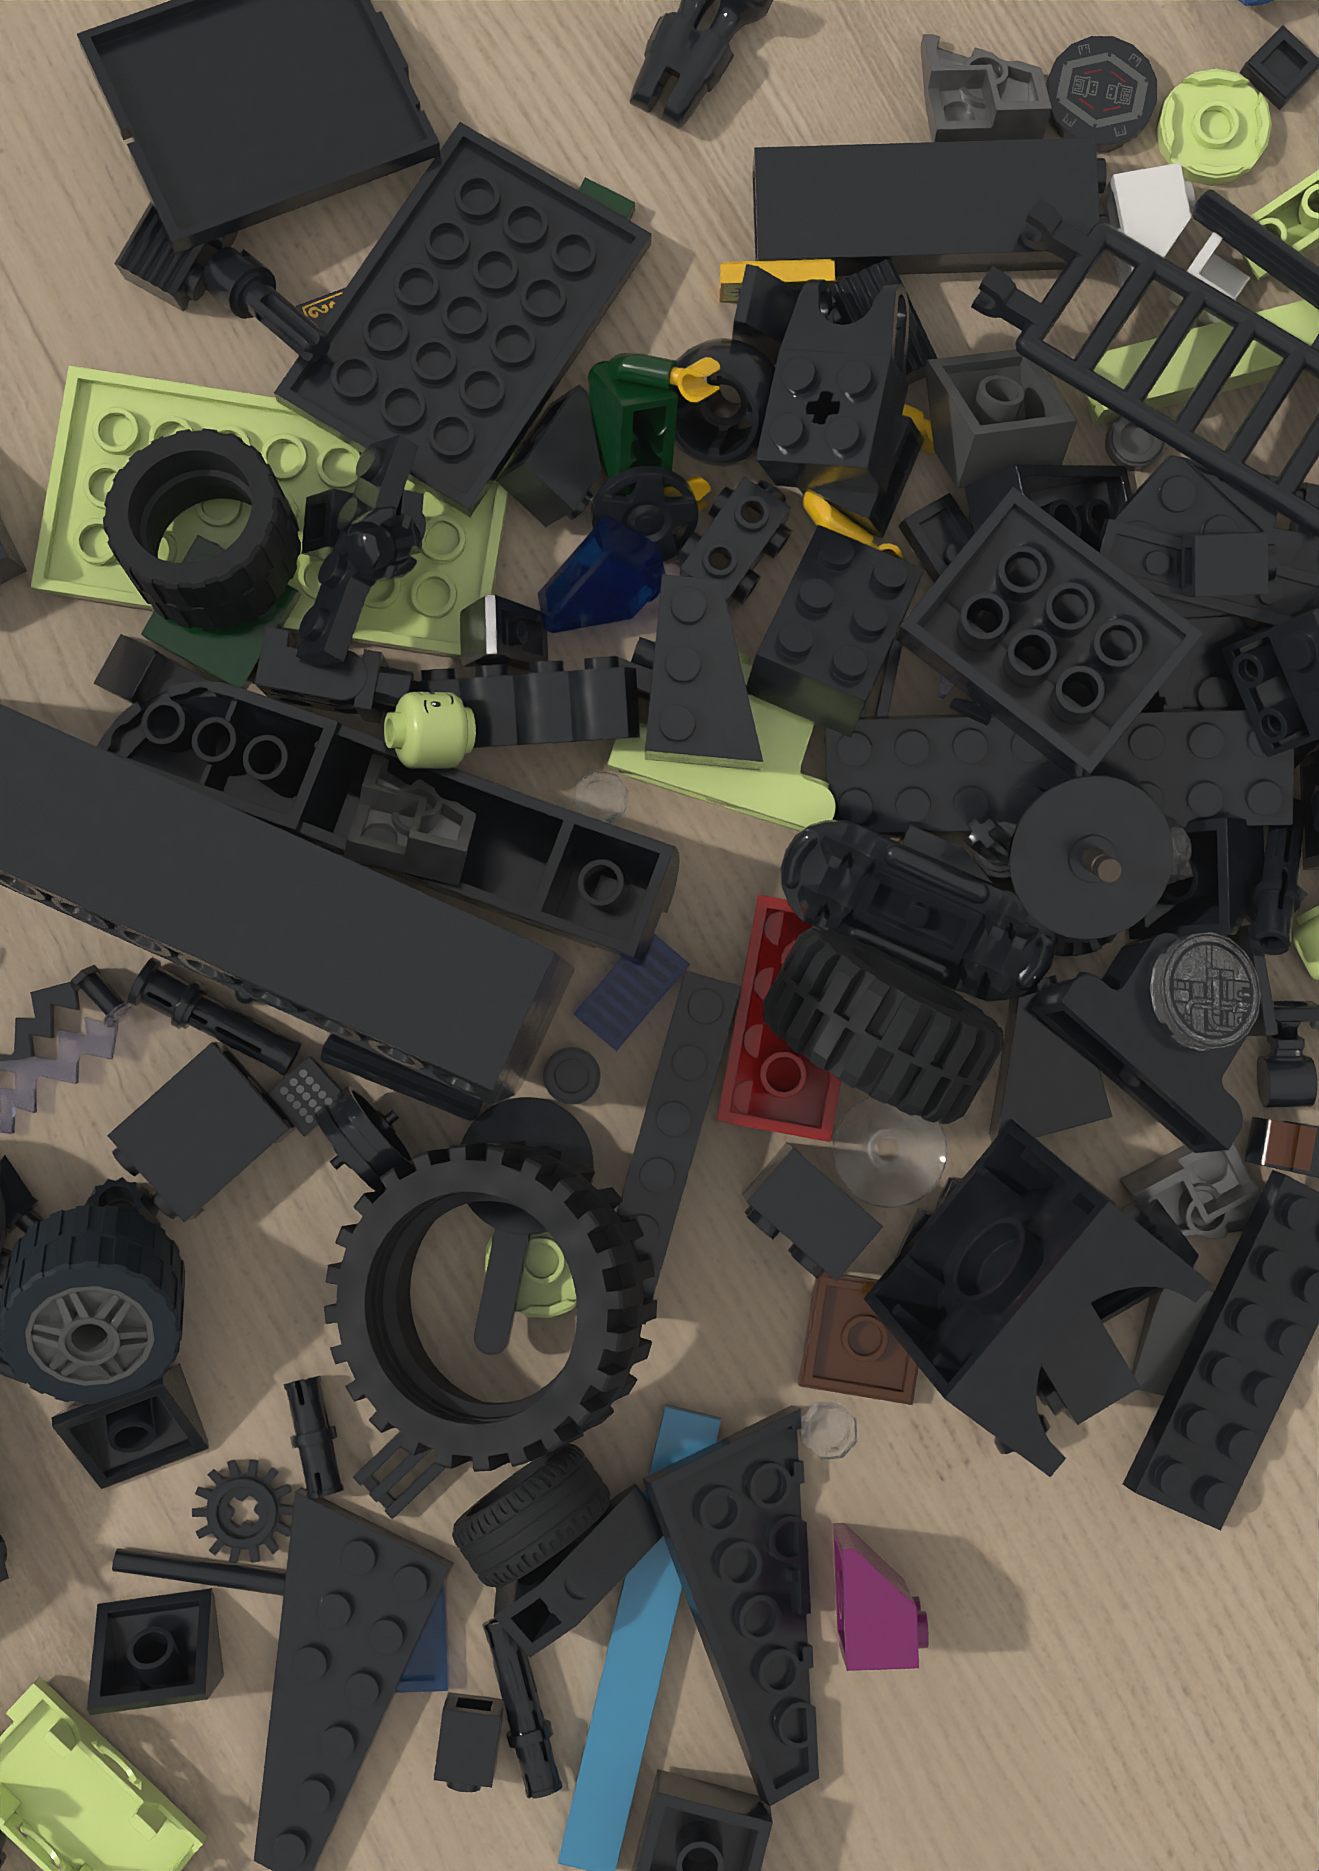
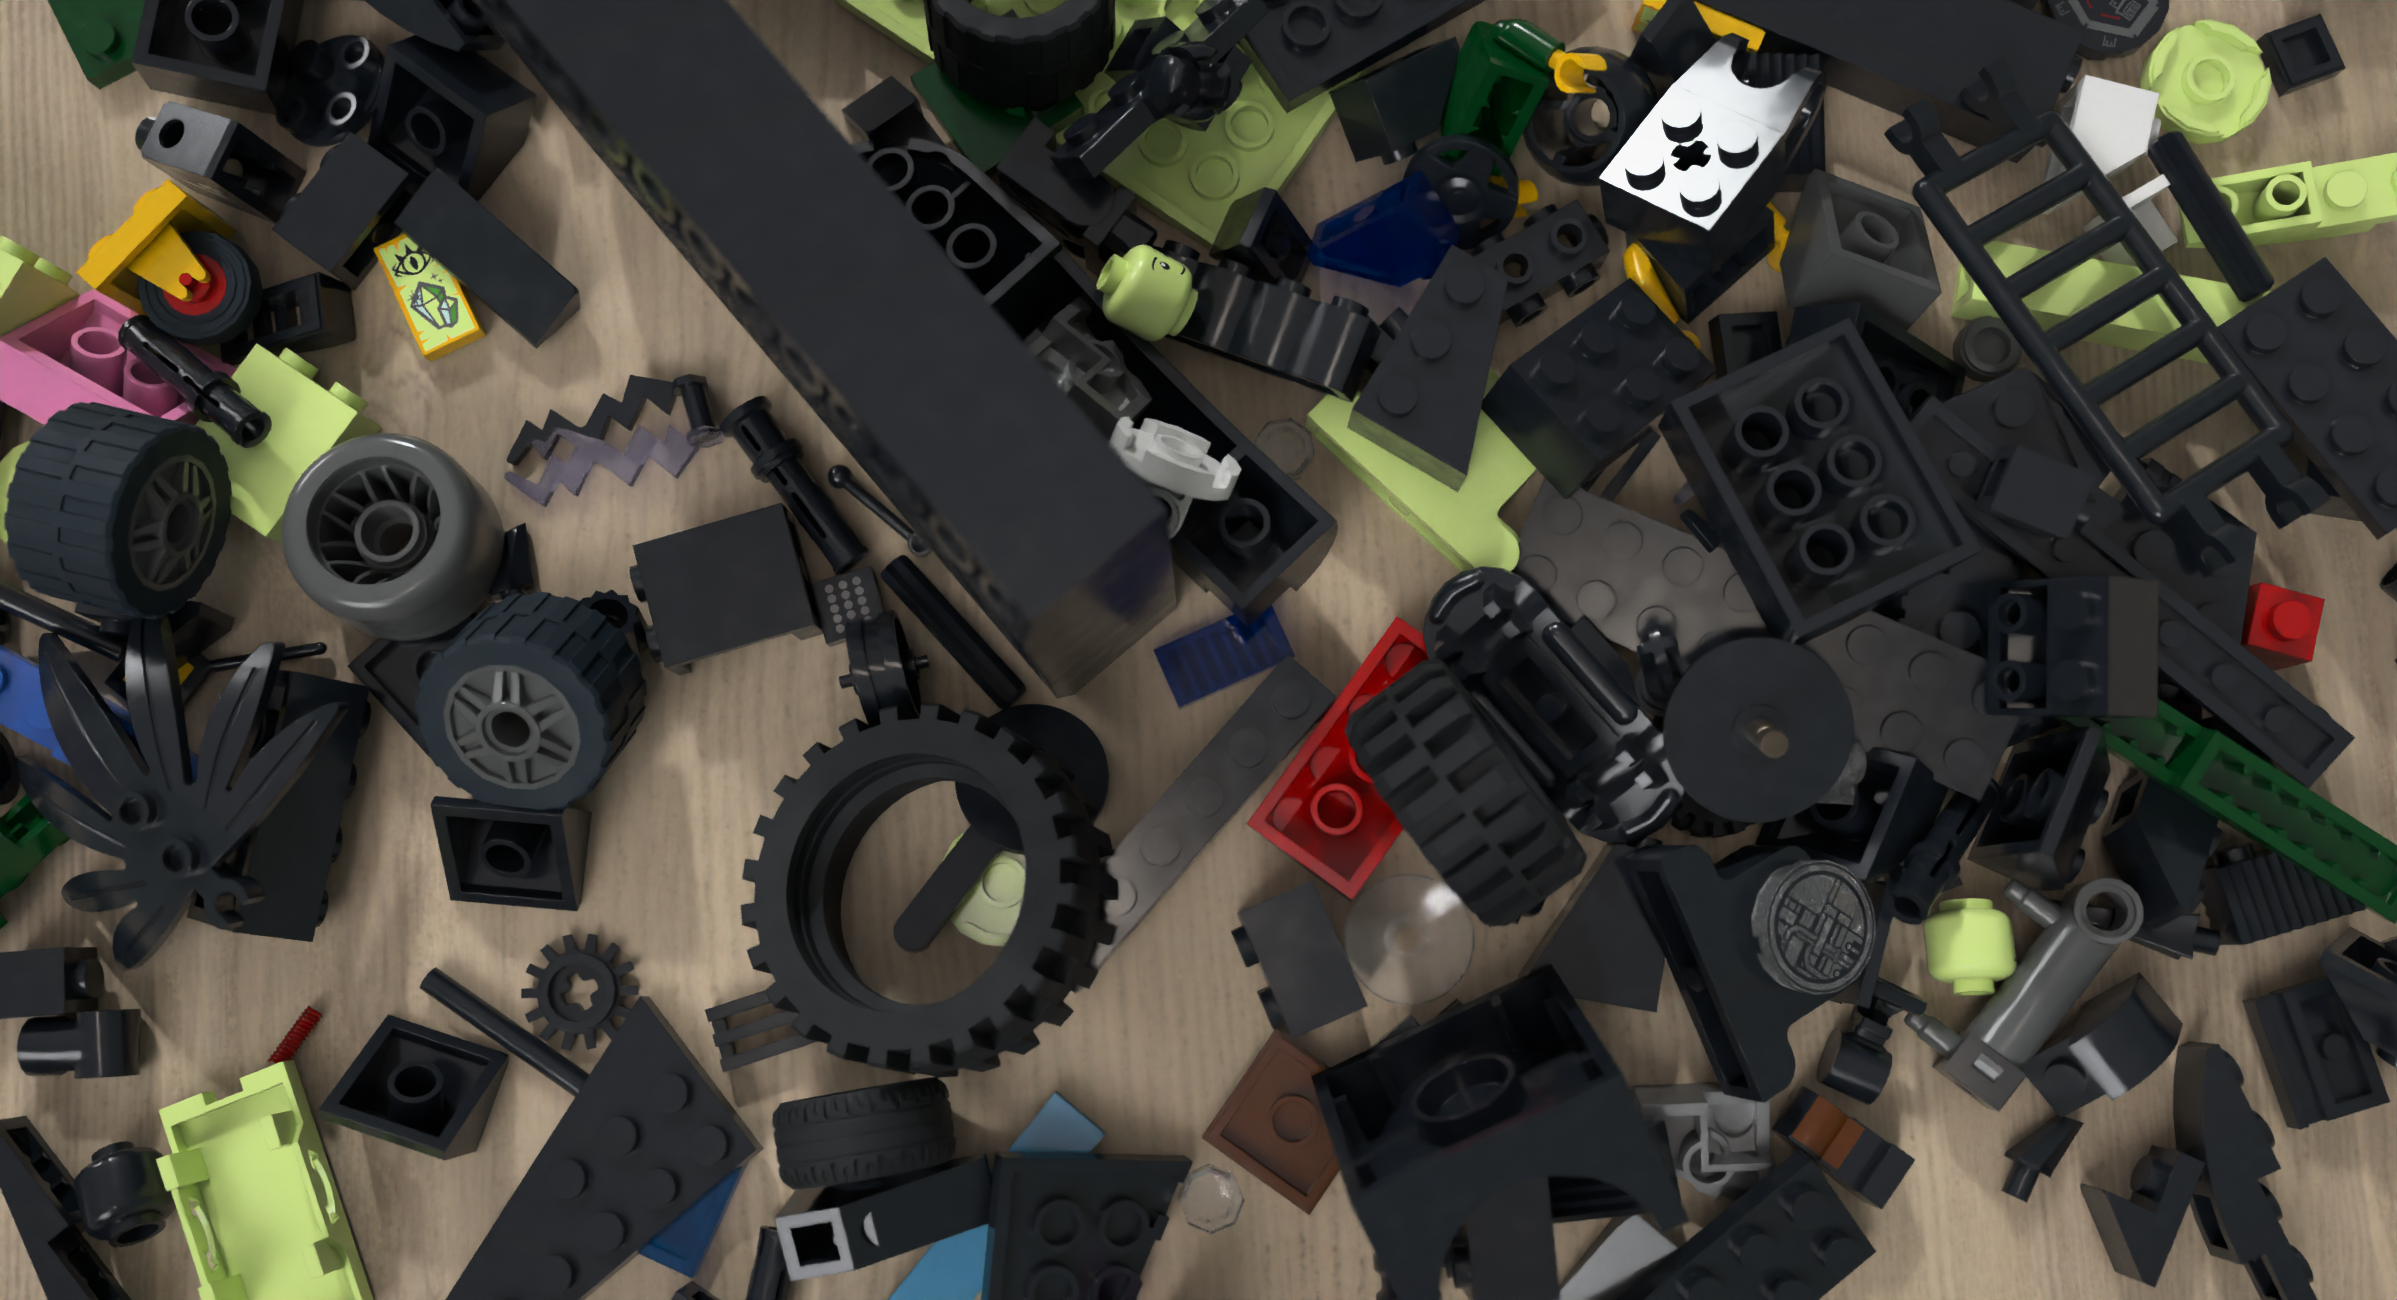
camera: 30 degrees right, 5 degrees down
(34, 1655) = (299, 1036): none -> red leg
(313, 1437) = (686, 949): black pin -> none
(520, 866) = (1174, 465): none -> white tile
(571, 1075) = (1122, 711): black tile -> none

